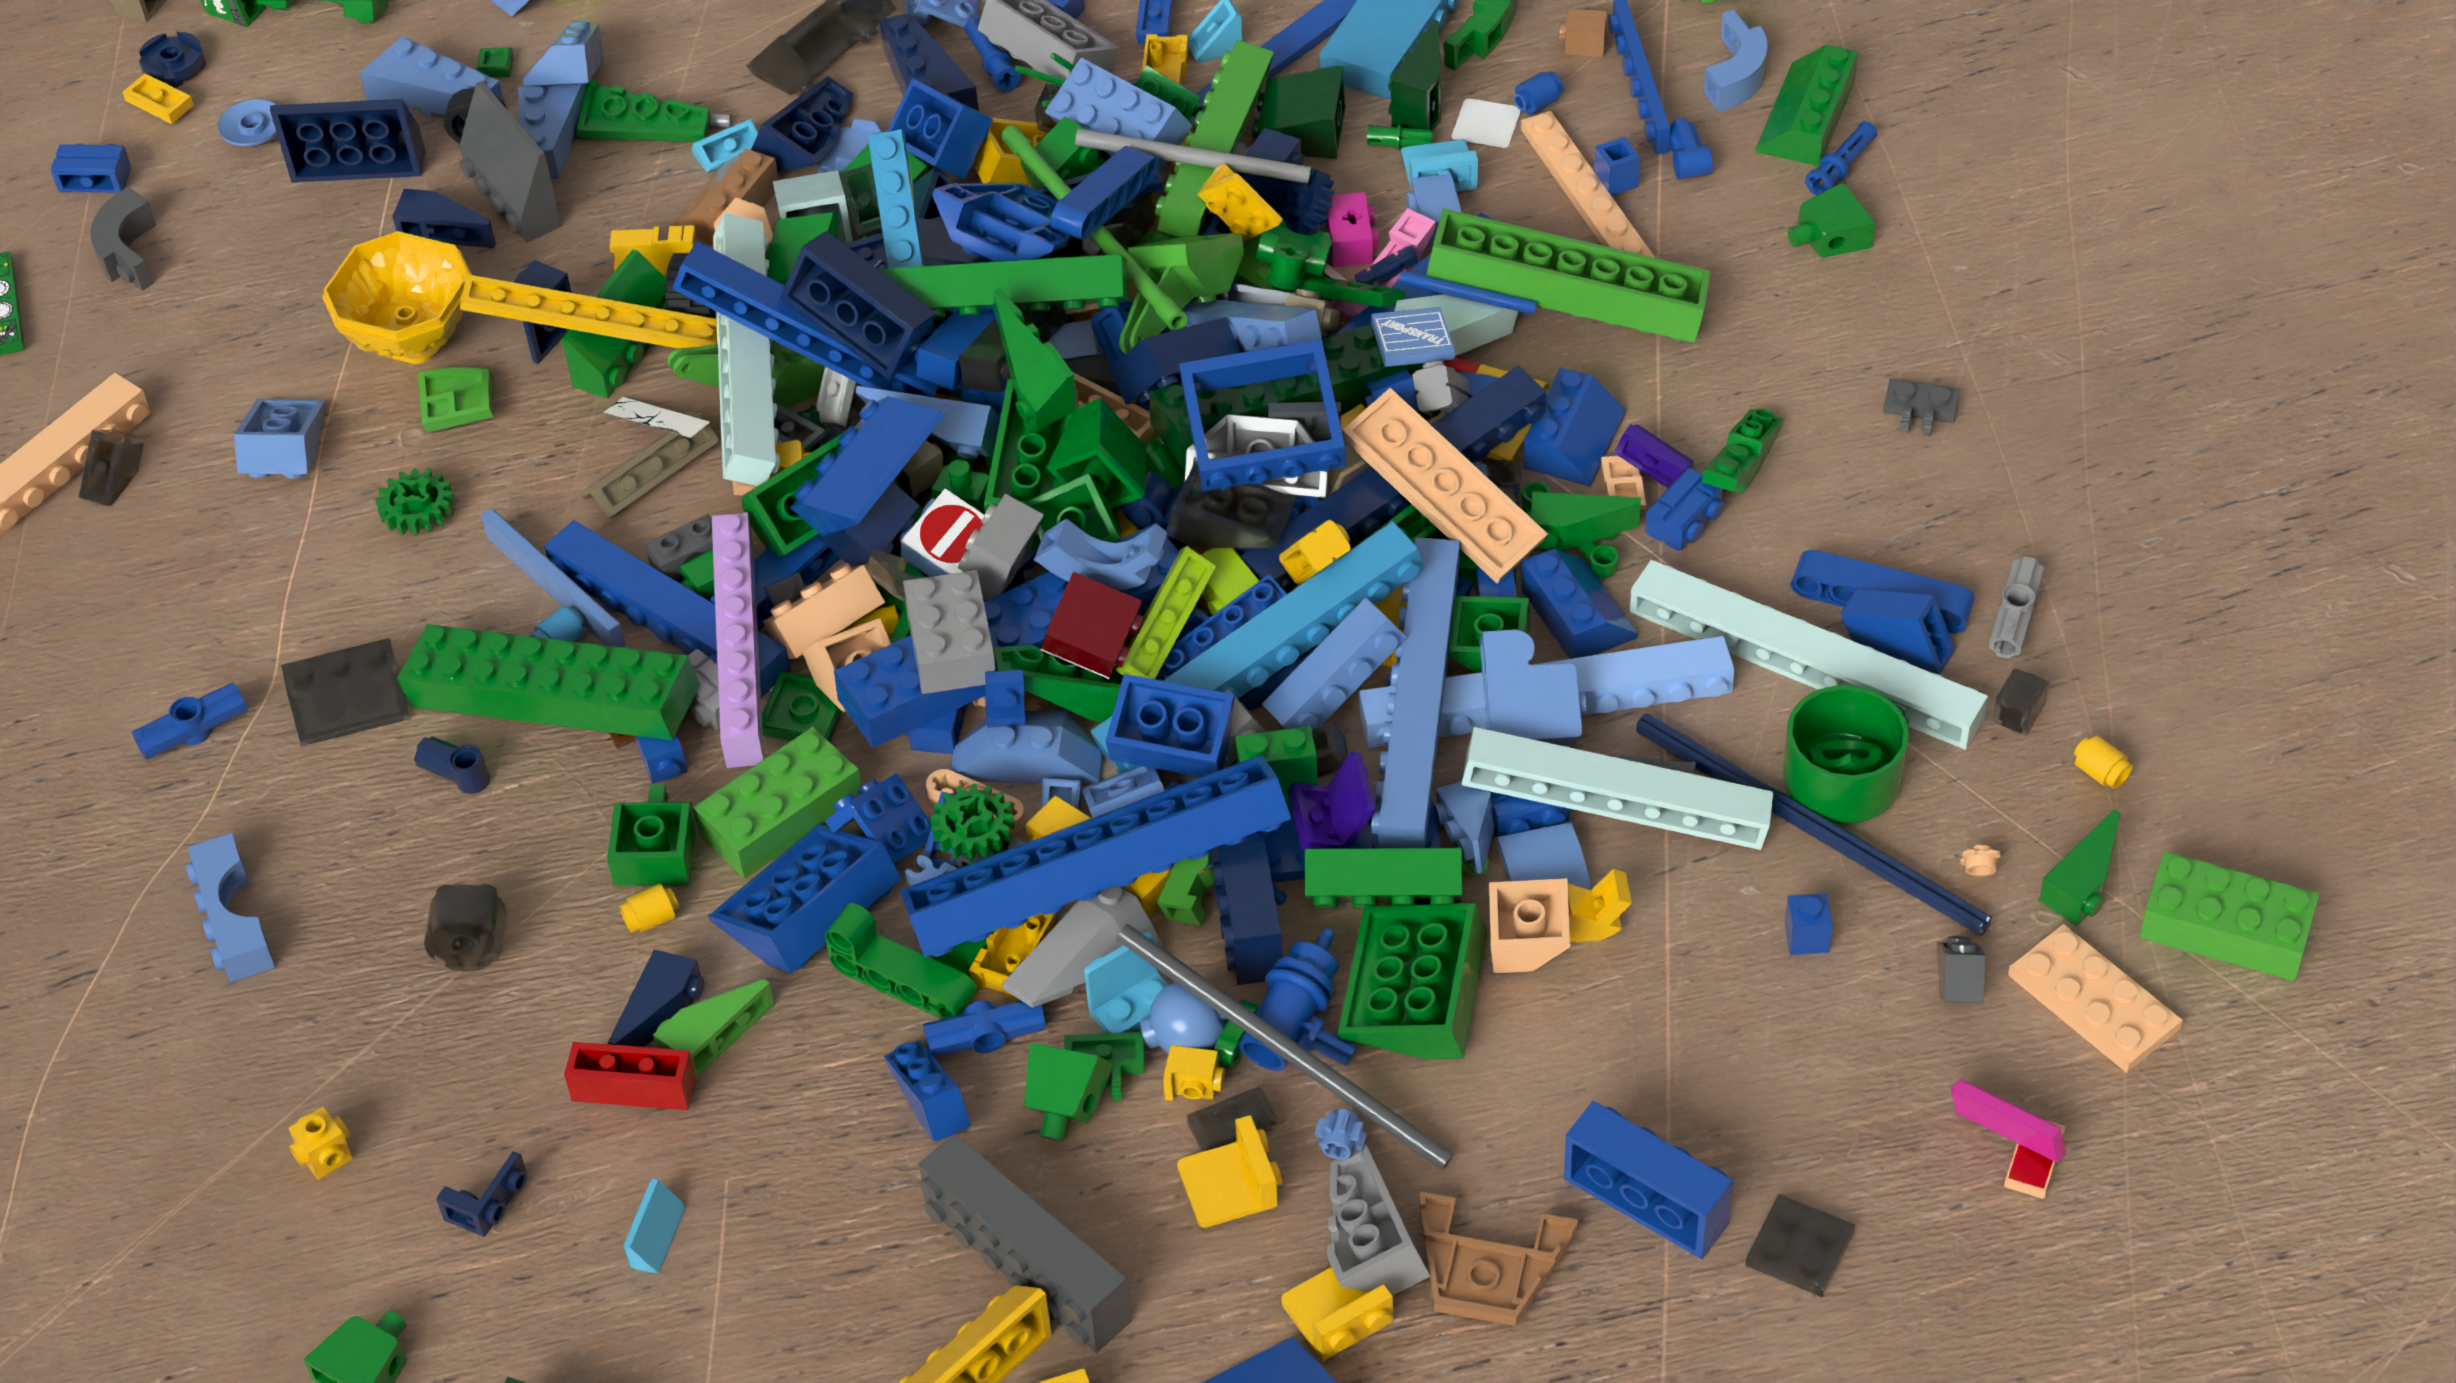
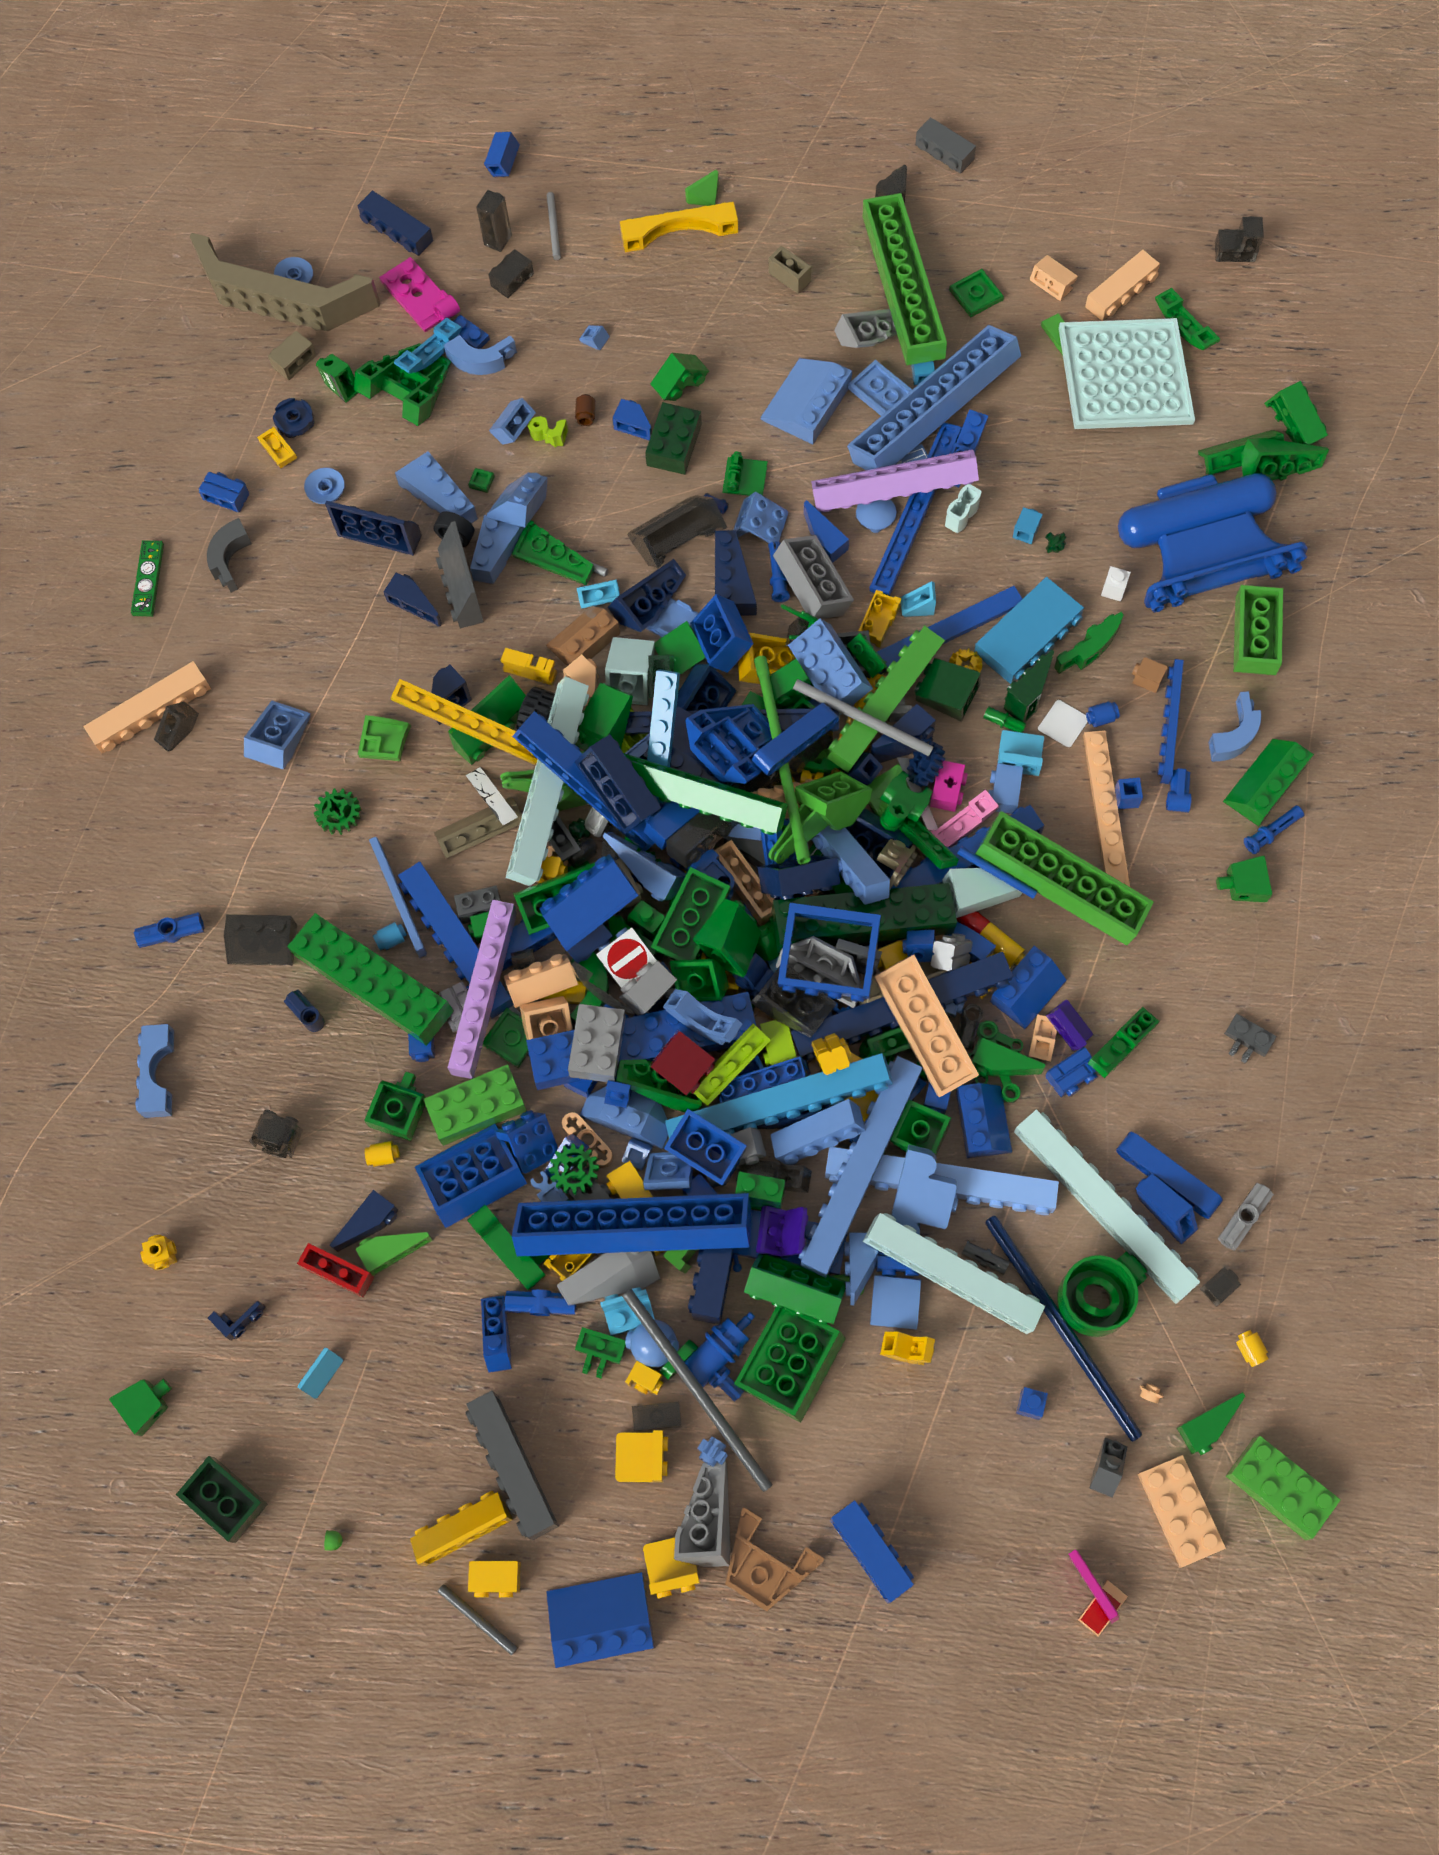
camera: 20 degrees right, 20 degrees up
(398, 296) = (365, 661): yellow rock -> none
(1037, 370) = (703, 875): green wedge -> none
(1064, 1086) = (568, 1365): green torso -> none
(1238, 203) = (879, 759): yellow bracket -> none
(1388, 267) = (958, 827): dark blue axle -> none
(1412, 336) = (945, 909): medium blue tile -> none
(1528, 923) = (868, 1348): light nougat slope -> none
(1800, 1245) = (945, 1617): clear smoke plate -> none

